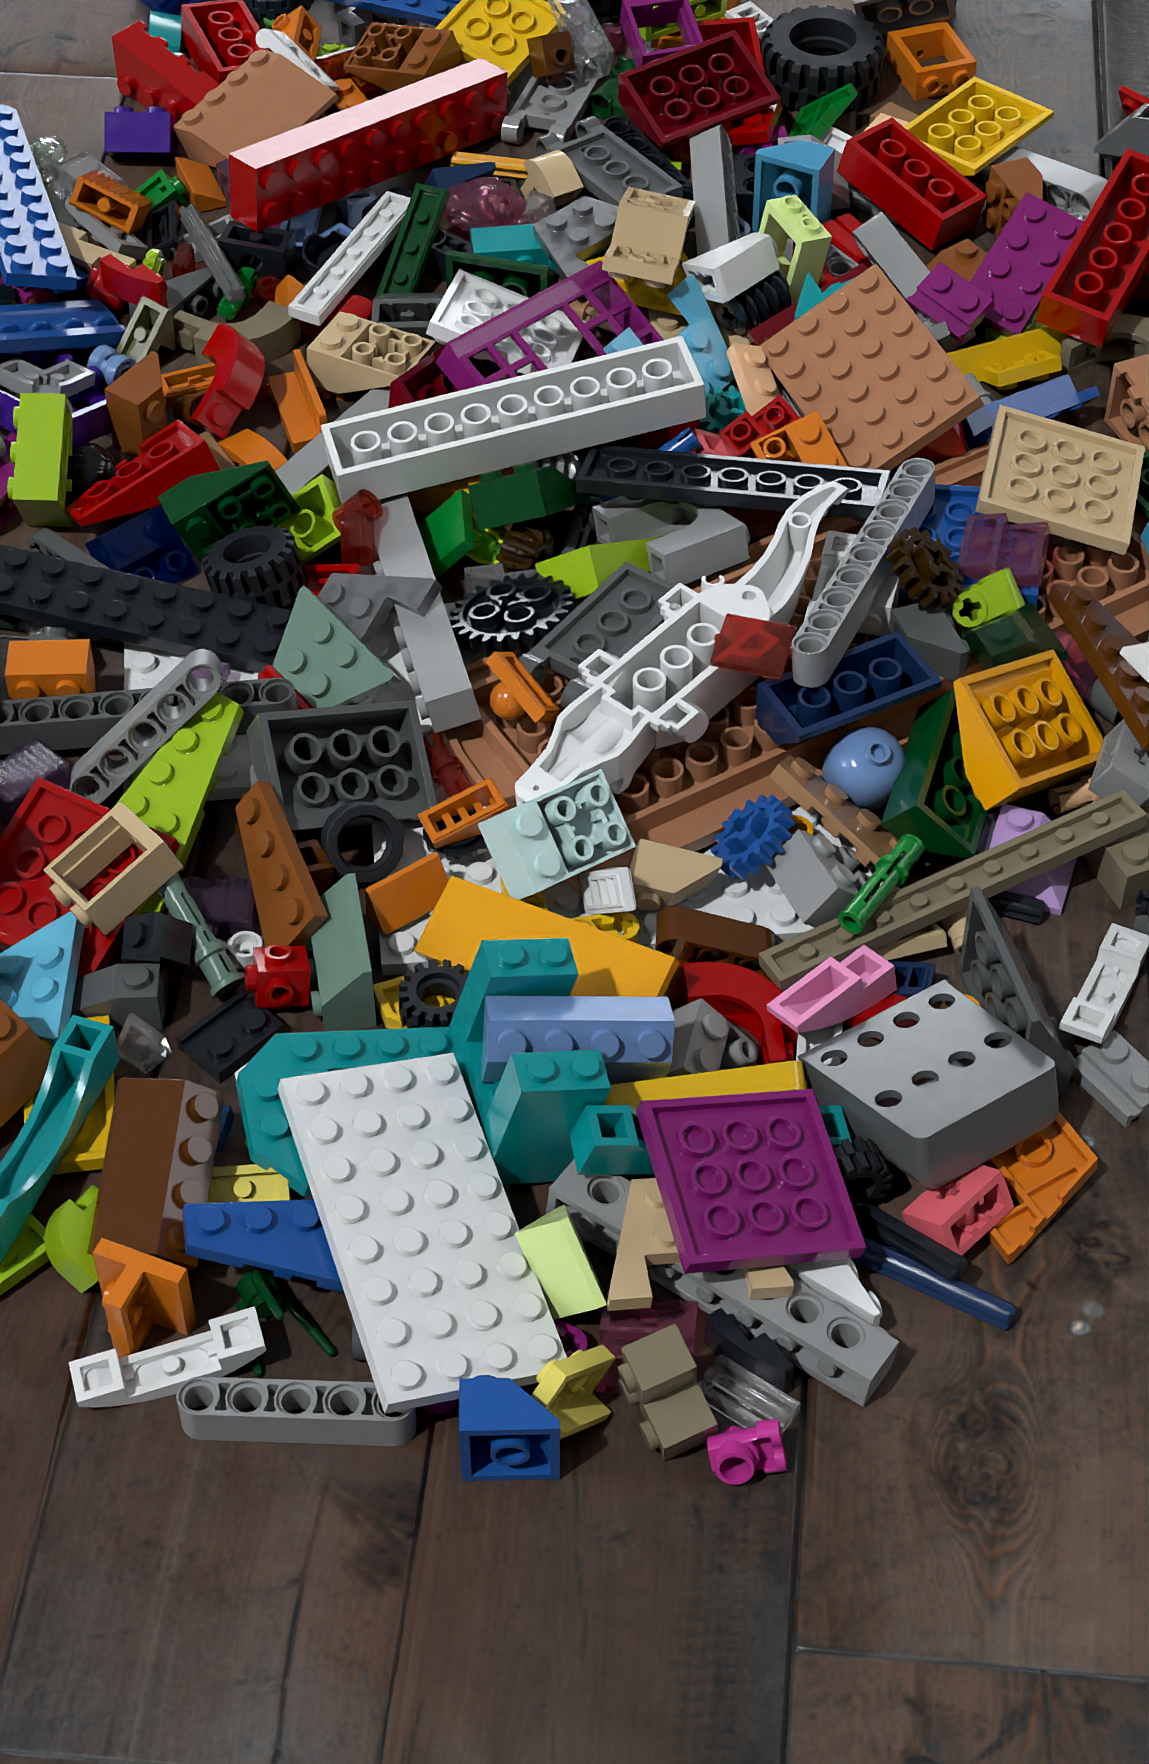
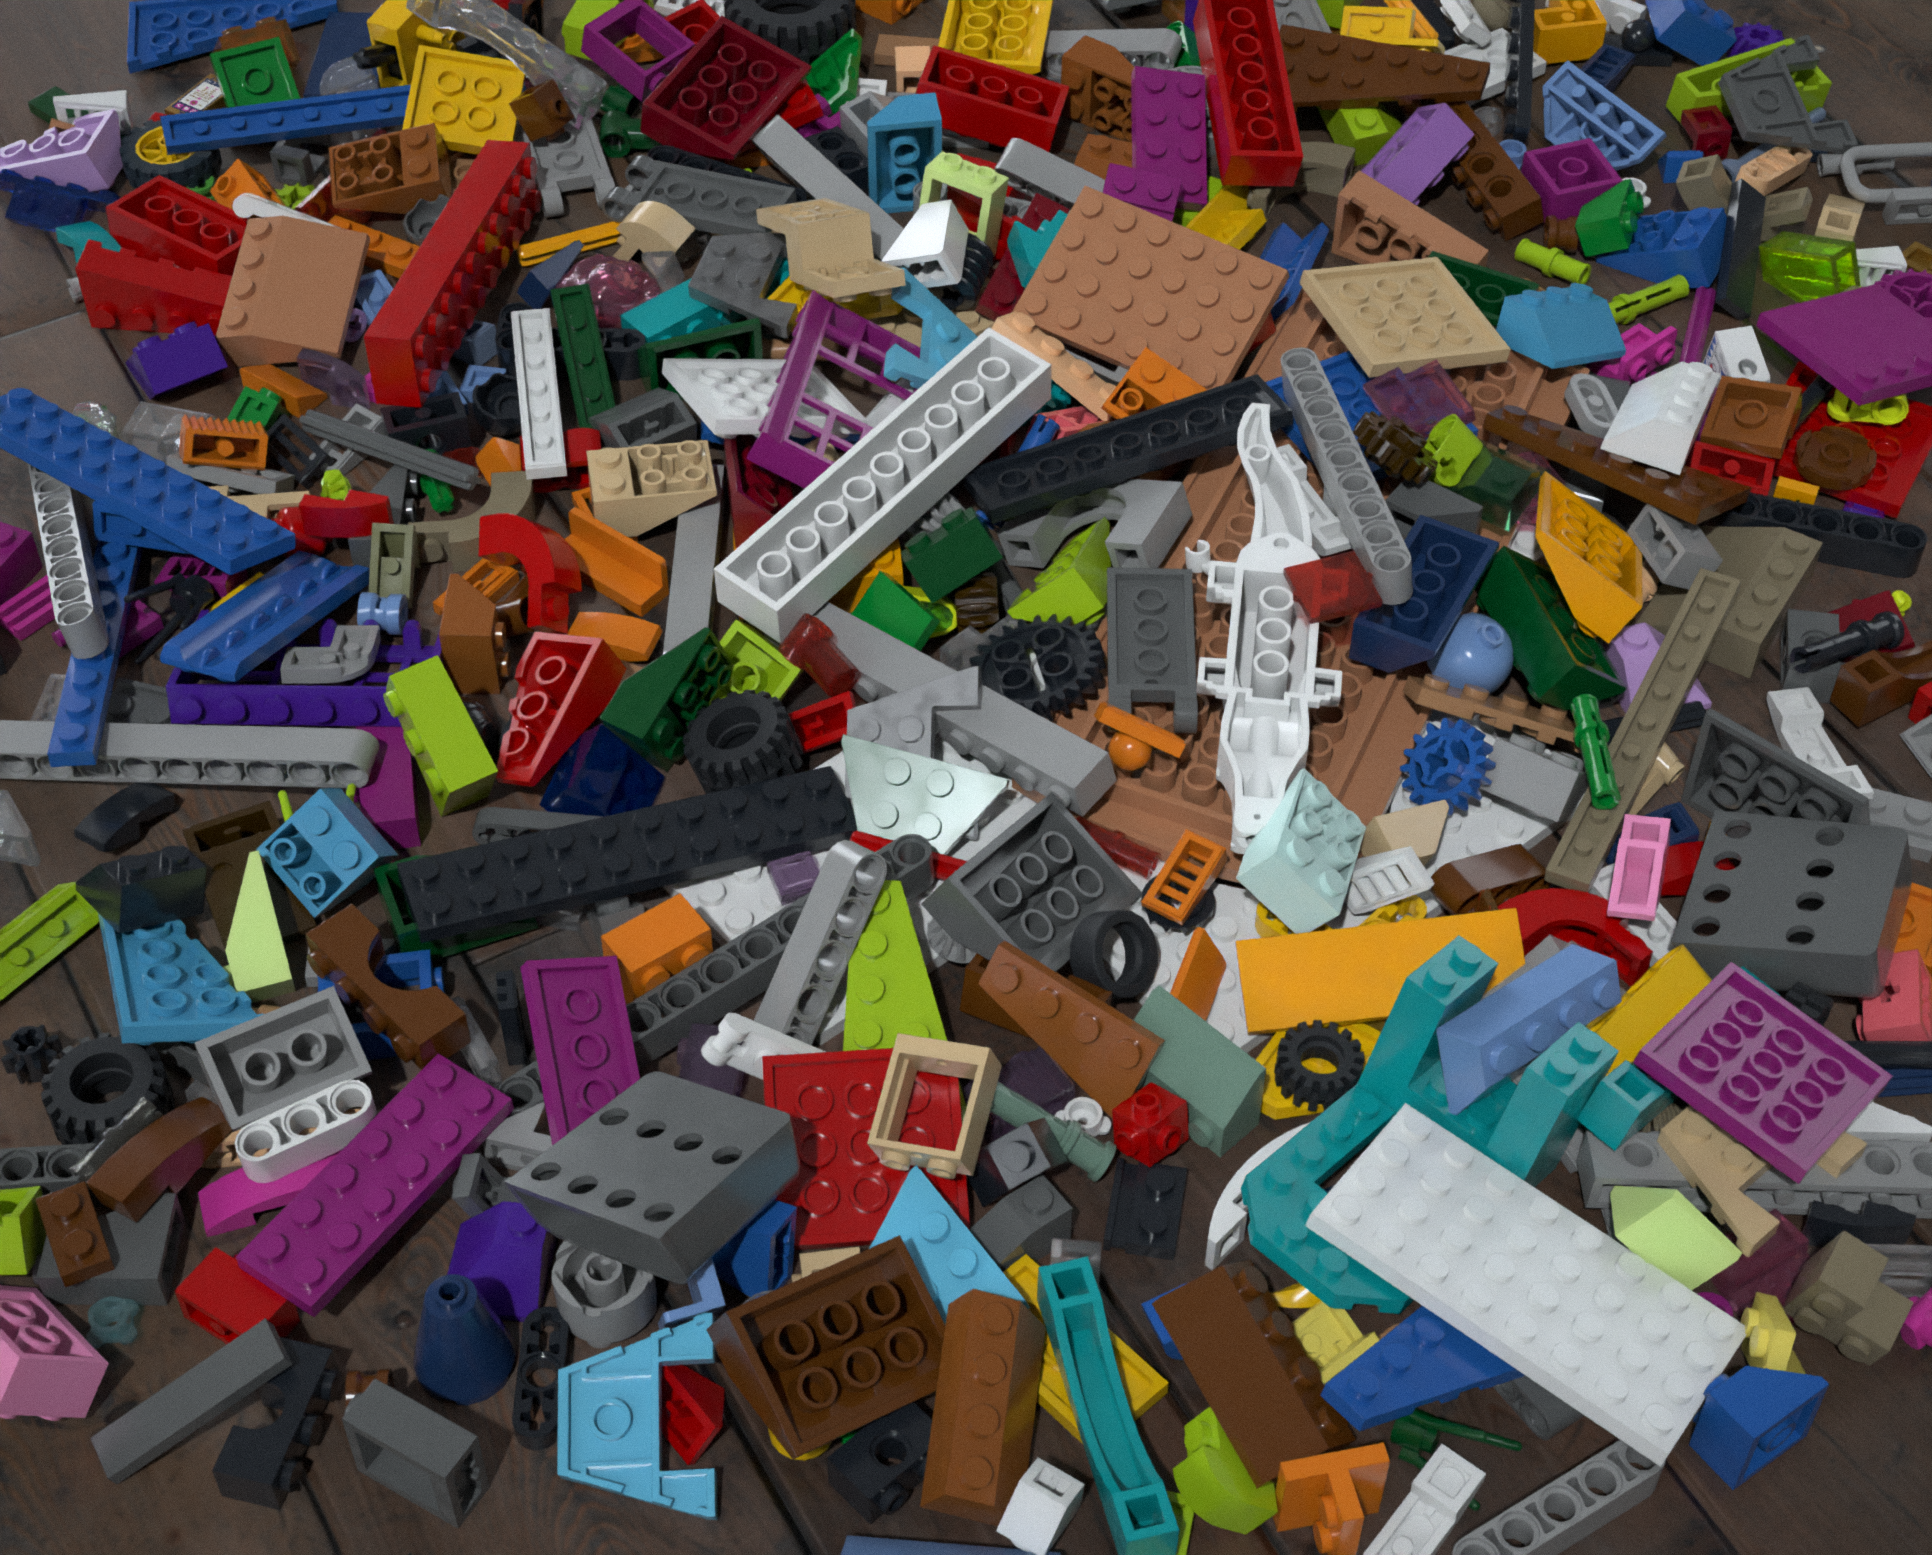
camera: 35 degrees left, 0 degrees up
(37, 759) = (758, 1042): none -> white plate
(183, 260) = (355, 471): clear red tile -> none
(750, 428) = (1088, 387): red slope -> none

